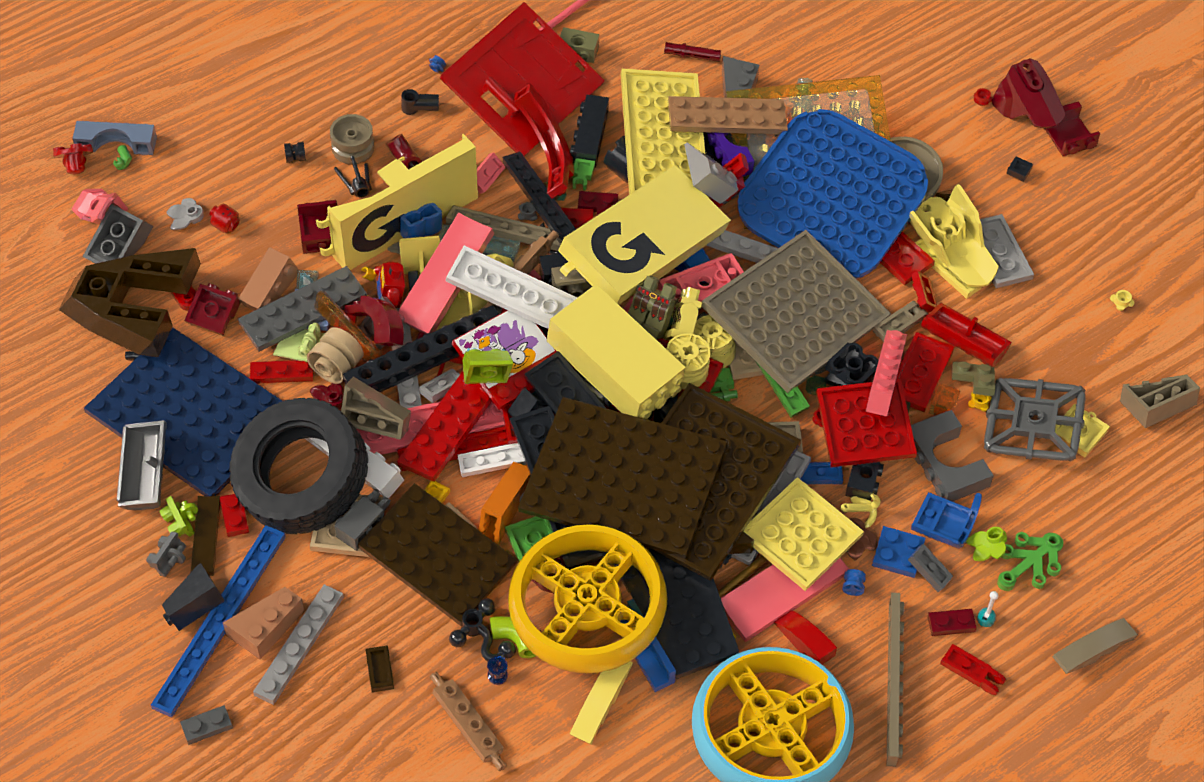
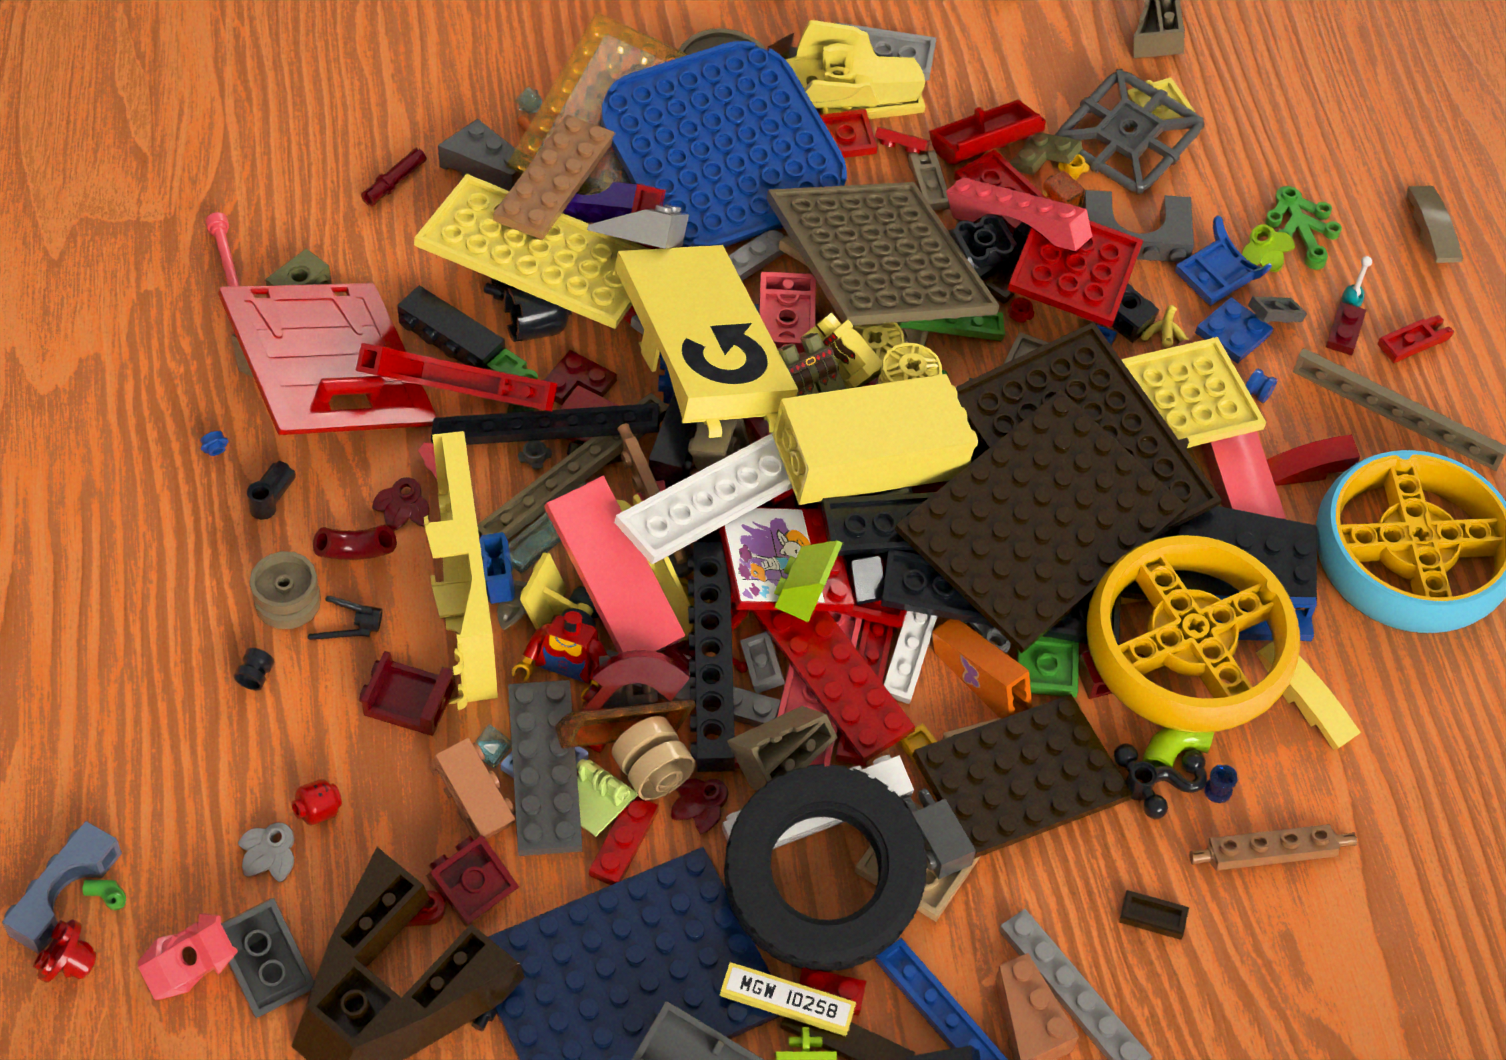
camera: 65 degrees left, 0 degrees up
(210, 490) = (788, 999): none -> tile

